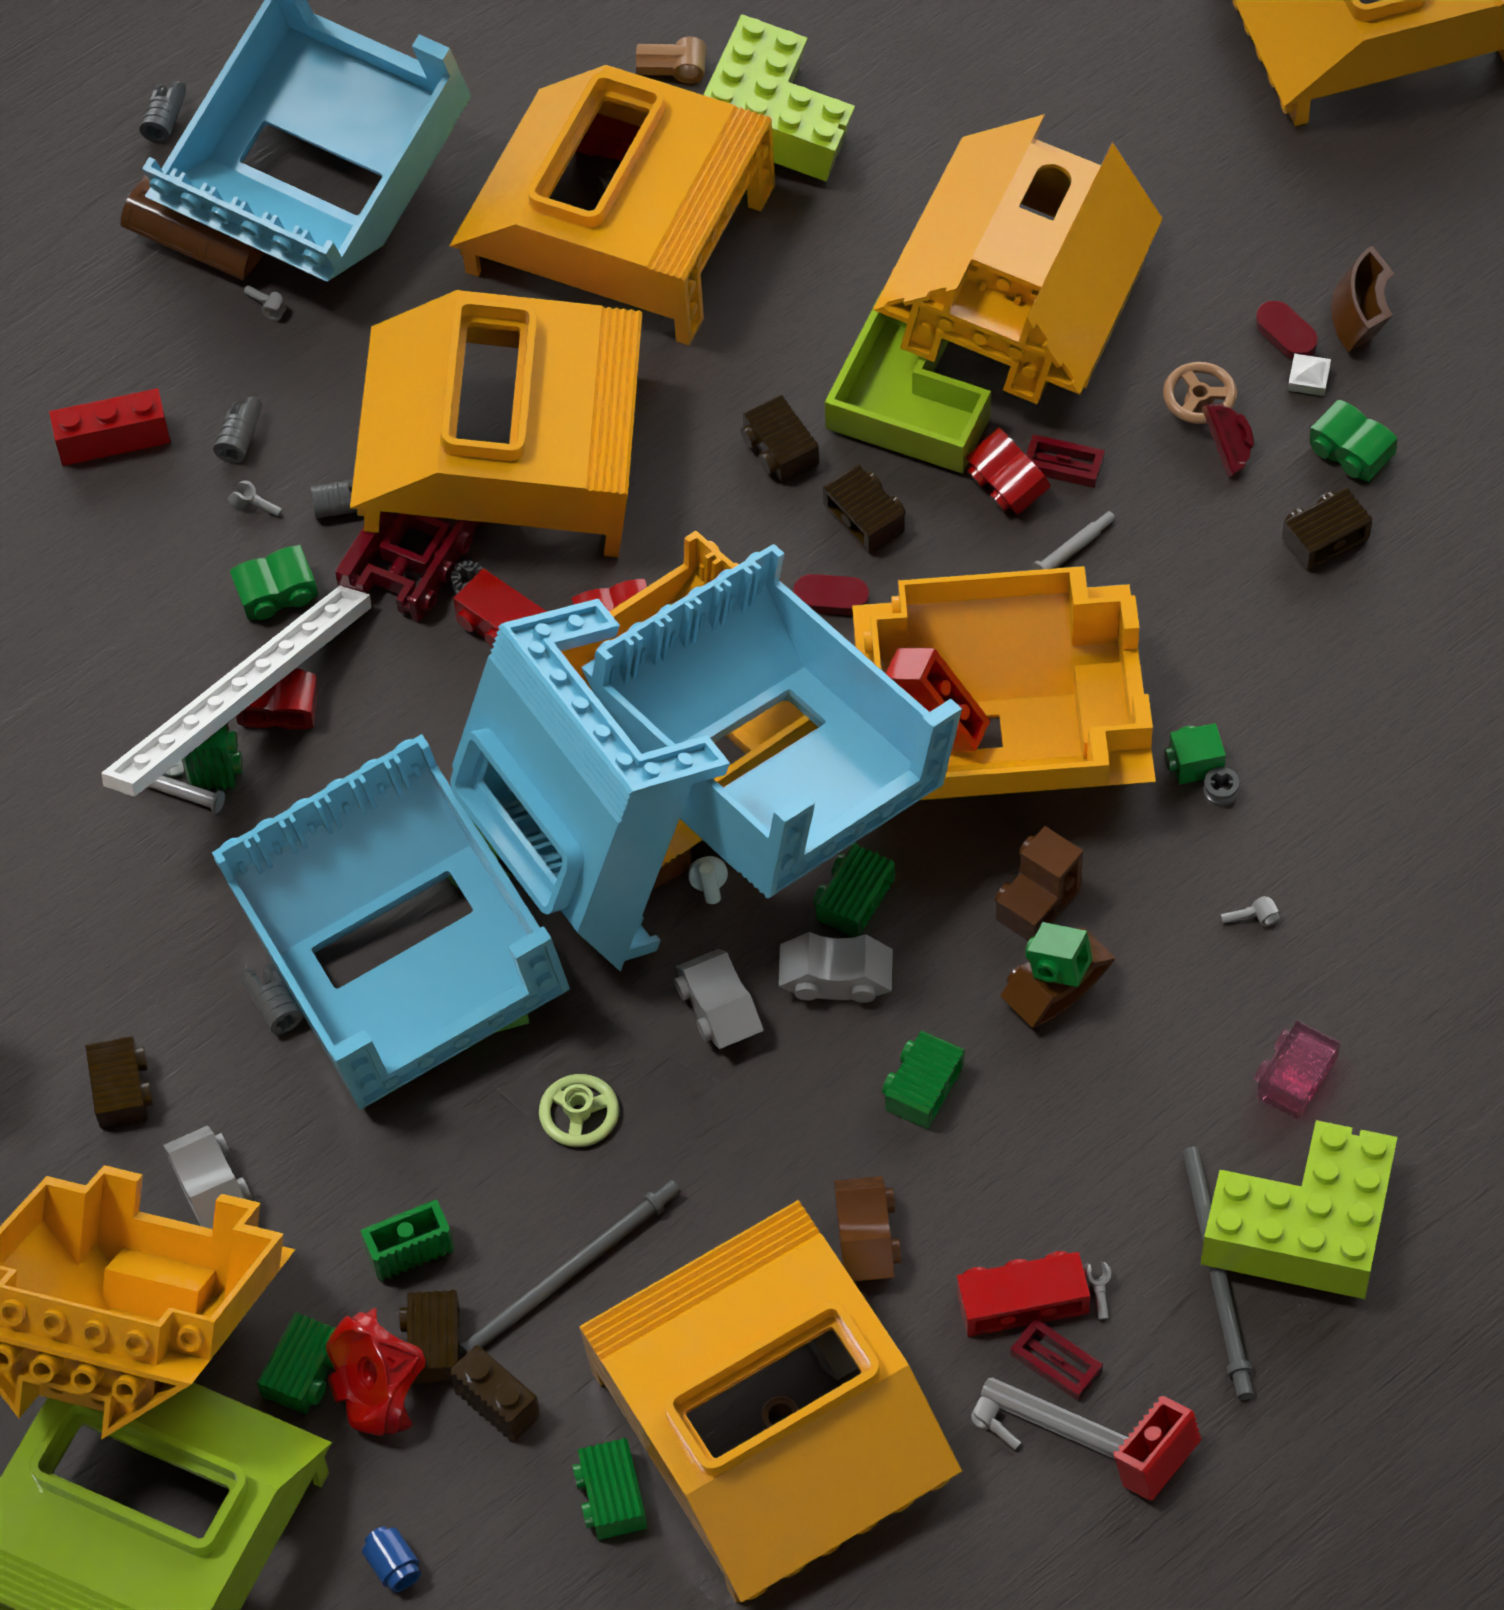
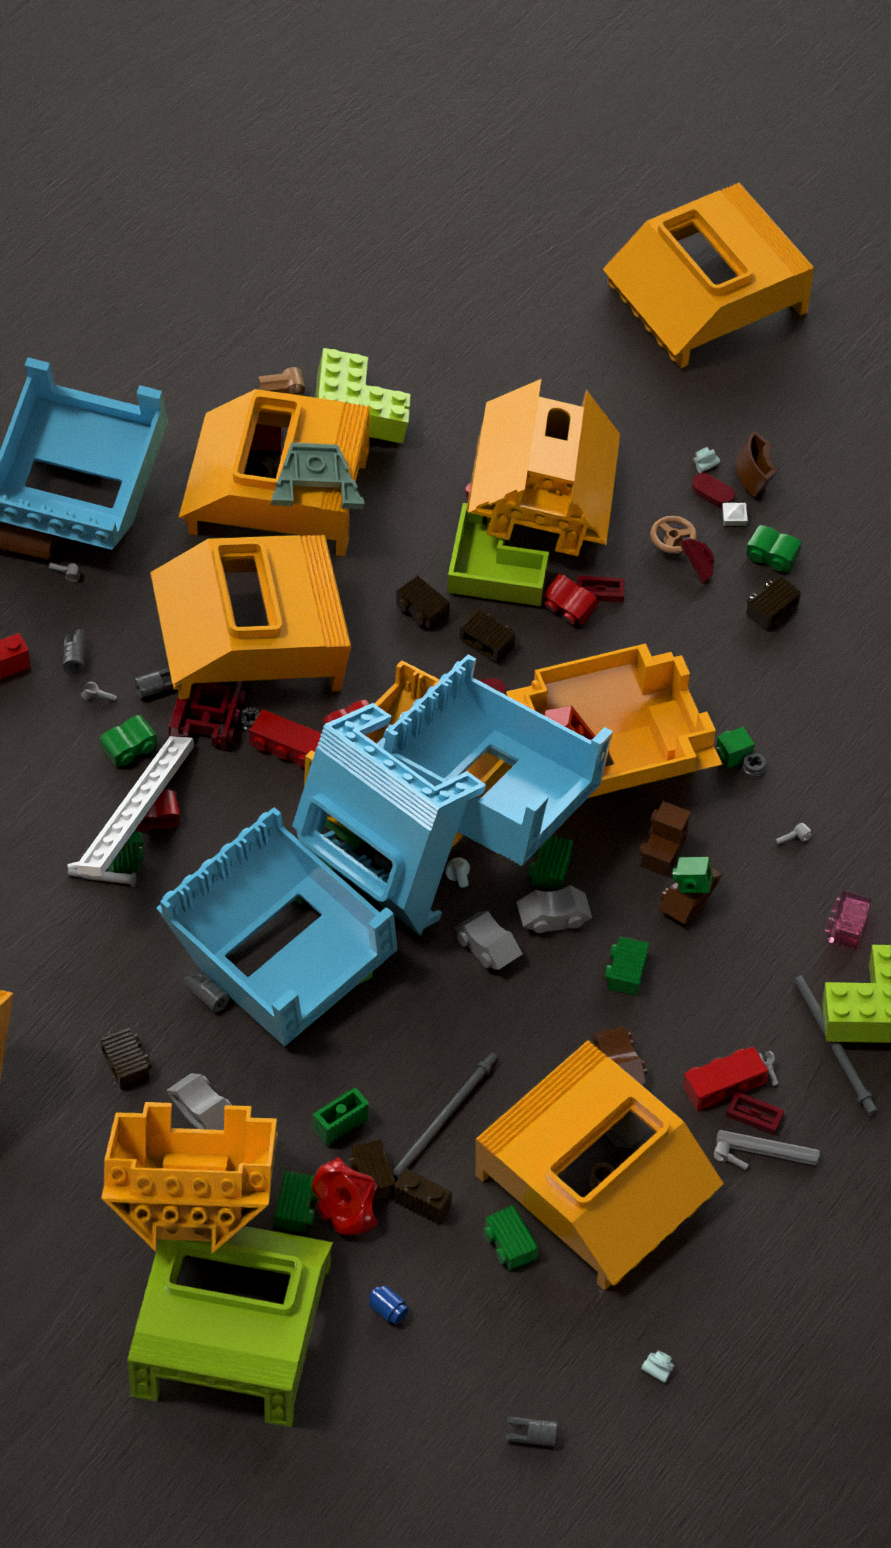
camera: 20 degrees left, 5 degrees down
(574, 1091) = (419, 1011): yellowish green piece -> none
(653, 202) = (316, 467): none -> sand green wing
(1075, 544) = (624, 635): light grey piece -> none
(1157, 1447) = (833, 1149): red brick -> none
(1289, 280) = (705, 459): none -> light aqua plate

